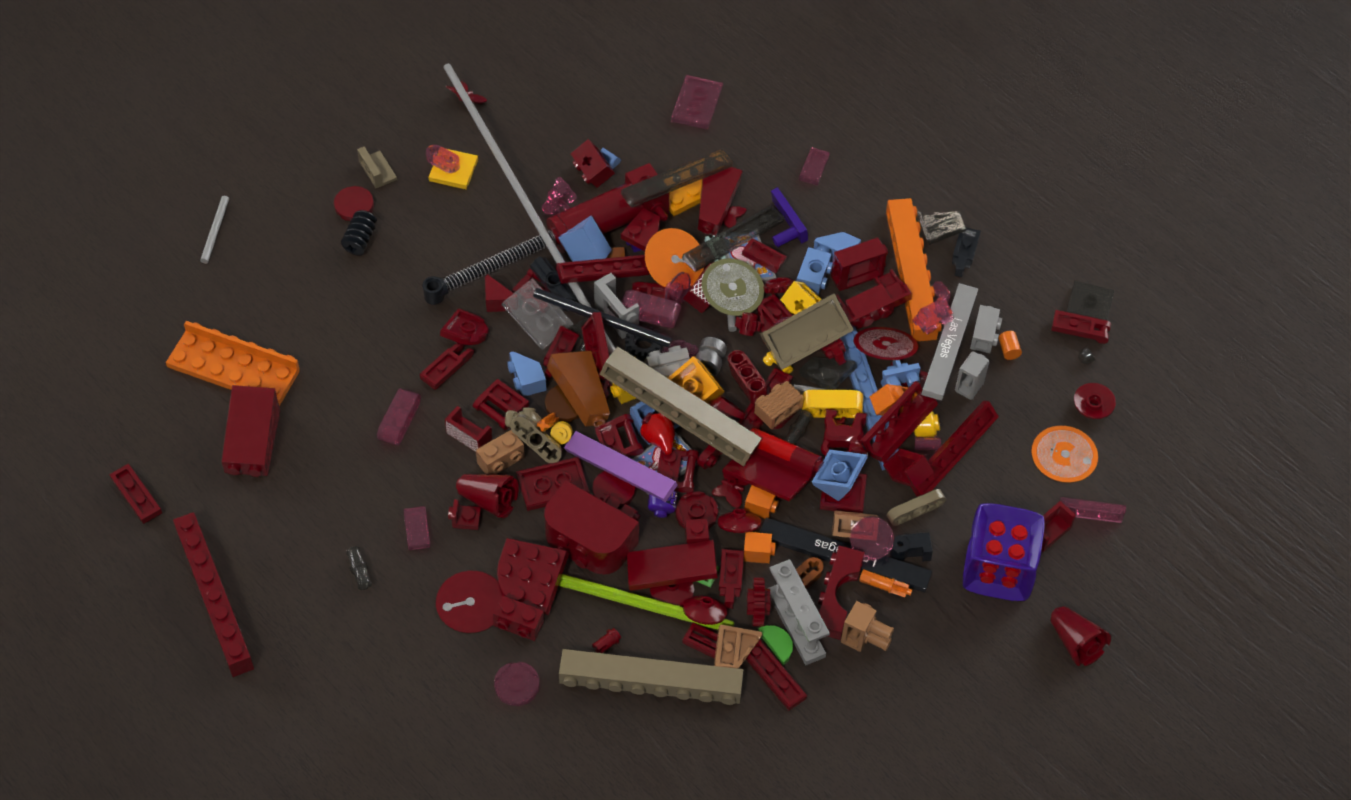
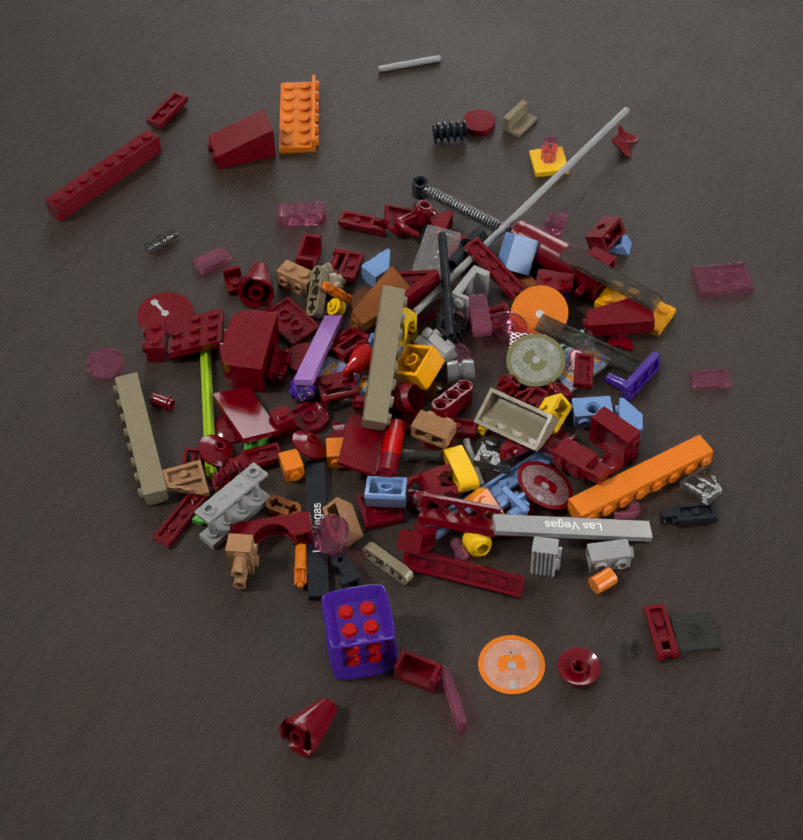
camera: 70 degrees right, 5 degrees down
(476, 306) = (419, 216): none -> dark red piece
(932, 315) = (586, 502): clear pink piece -> none

